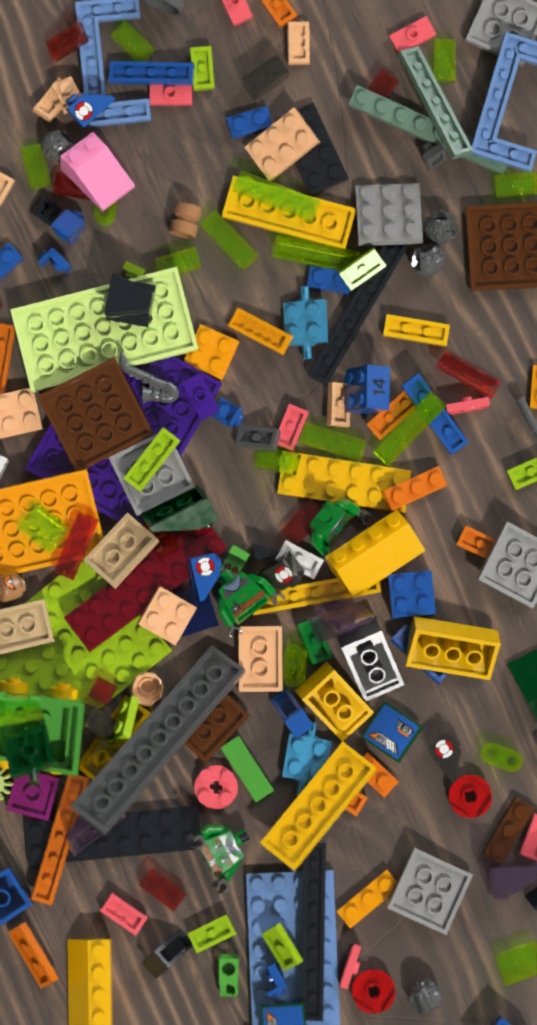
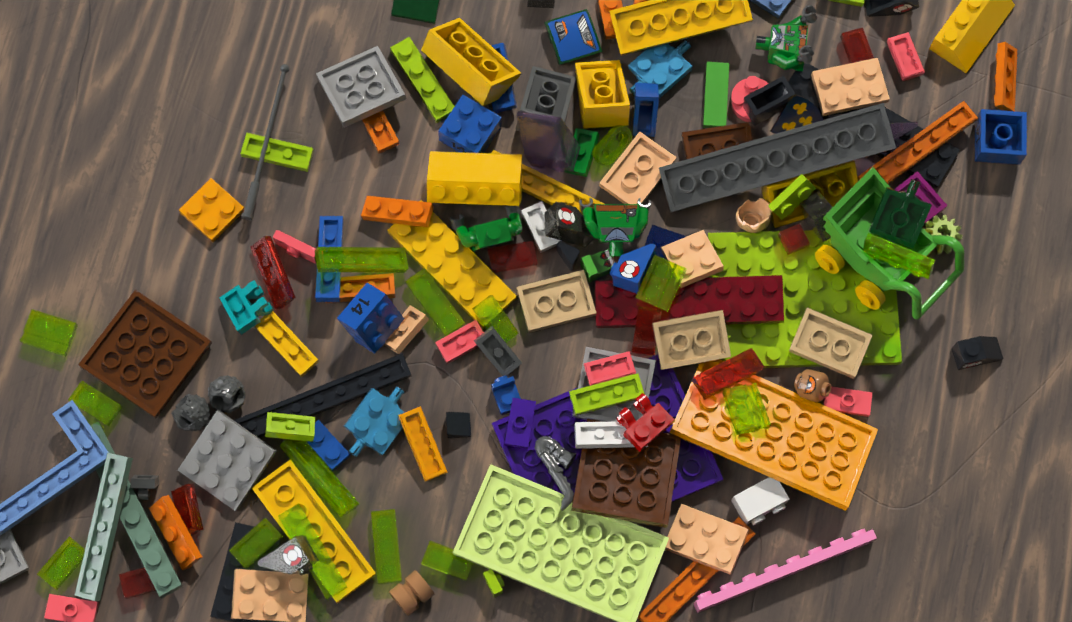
camera: 150 degrees left, 10 degrees down
(102, 456) = (649, 426): none -> red plate
(126, 431) = (600, 435): none -> white plate
(129, 301) = (519, 547): black piece -> none
(147, 850) = (850, 86): none -> light nougat plate
(163, 480) = (609, 368): none -> coral plate
(169, 794) = (795, 114): none -> dark blue shield
(174, 575) = (661, 283): none -> clear neon green plate
(184, 512) = (616, 330): dark green slope -> none
(199, 784) = (768, 100): none -> black slope
(214, 352) = (475, 456): light orange plate -> none
(245, 510) = (556, 301): none -> tan plate
(246, 365) = (458, 424): none -> black slope
(285, 175) = (291, 557): none -> clear smoke slope
(320, 170) = (255, 543): none -> clear neon green plate
(384, 138) = (175, 532): none -> orange plate
(388, 160) = (187, 507): none -> clear red plate
(469, 328) = (240, 309): none -> teal plate
(479, 610) = (422, 79): none -> lime plate

